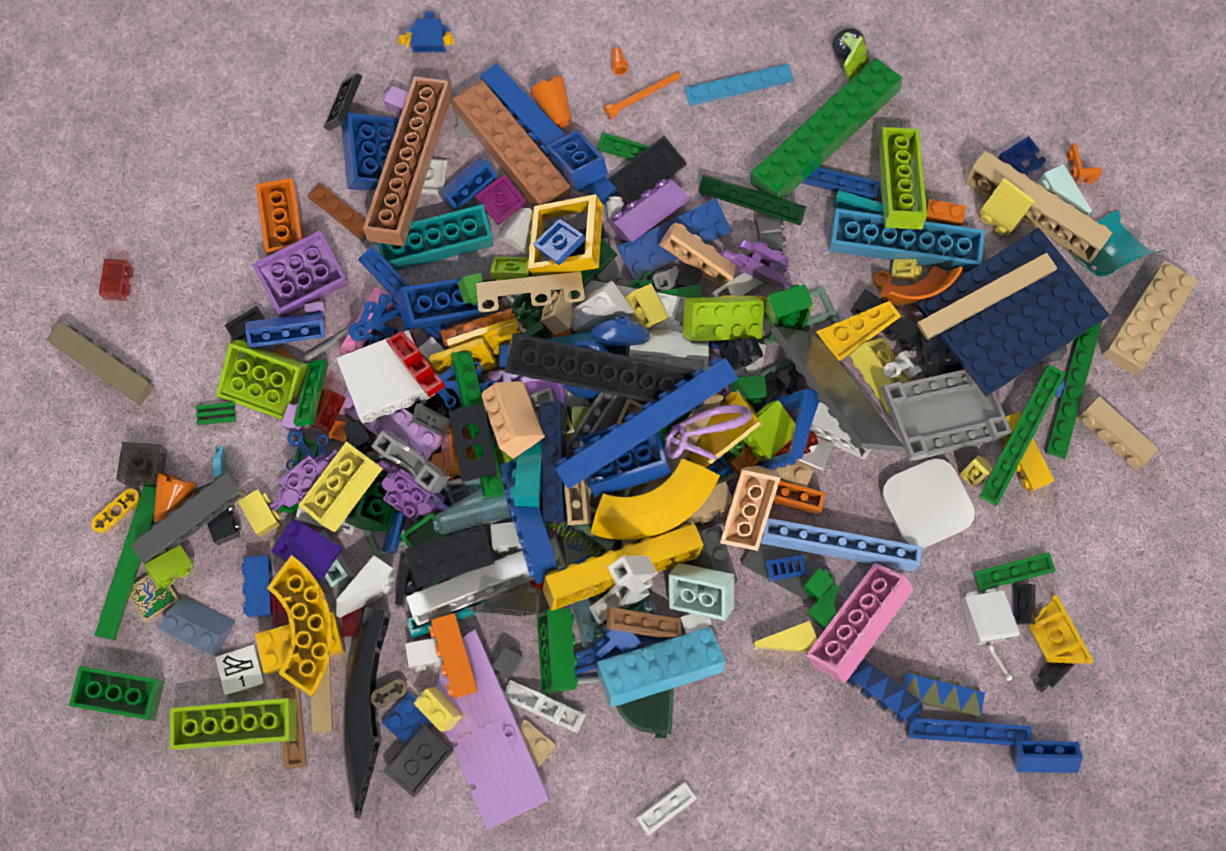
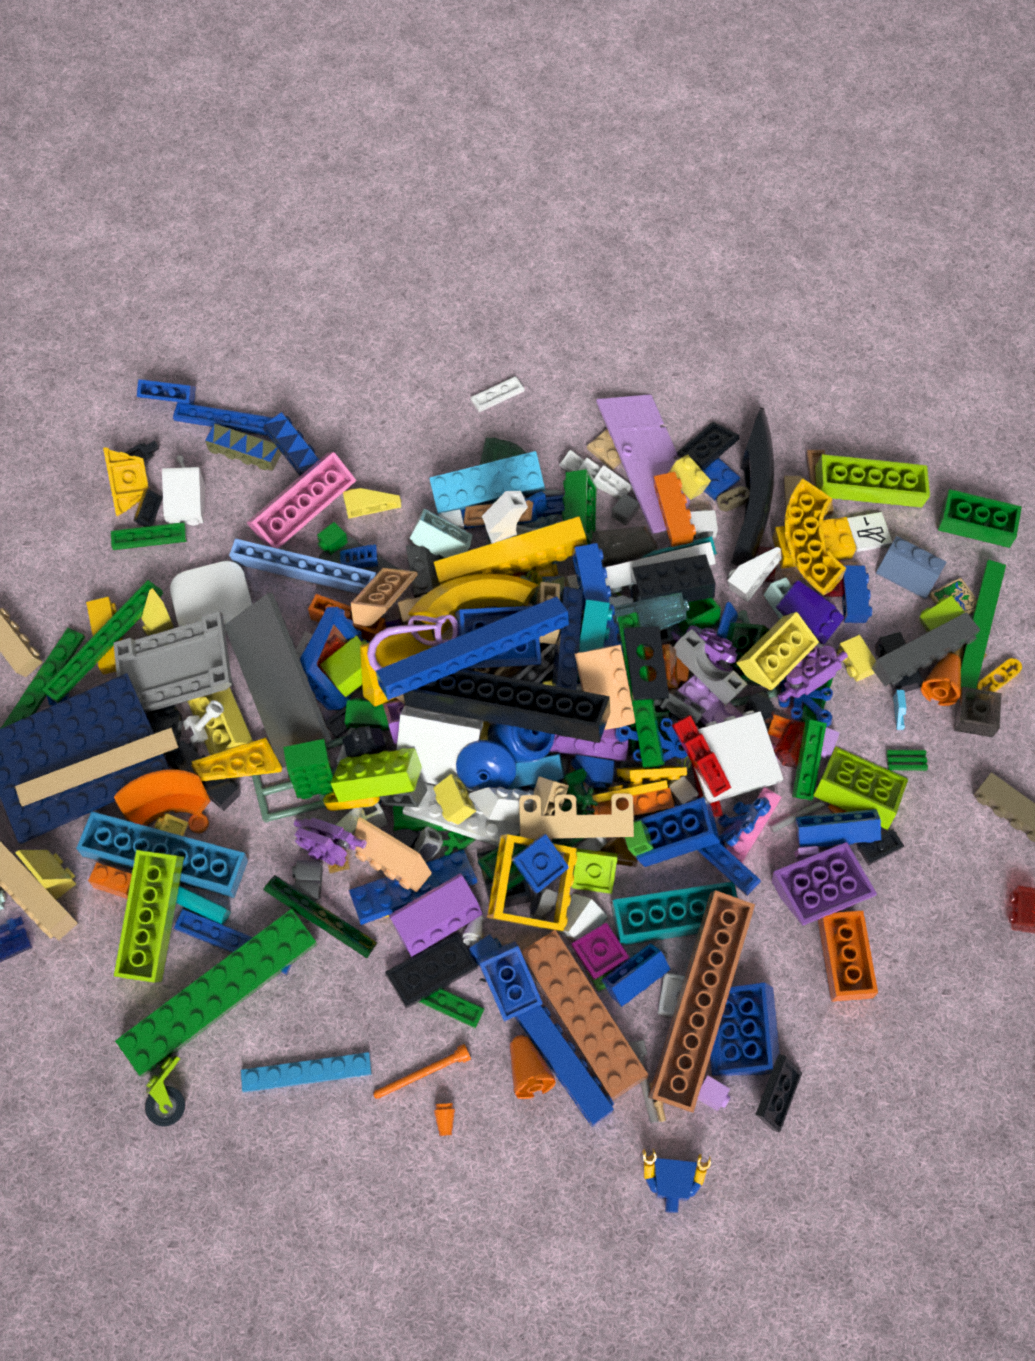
camera: 175 degrees left, 10 degrees down
(338, 210) = (780, 965): dark orange plate -> none
(405, 586) = (719, 577): black tile -> none
(824, 609) = (328, 516): green arch -> none

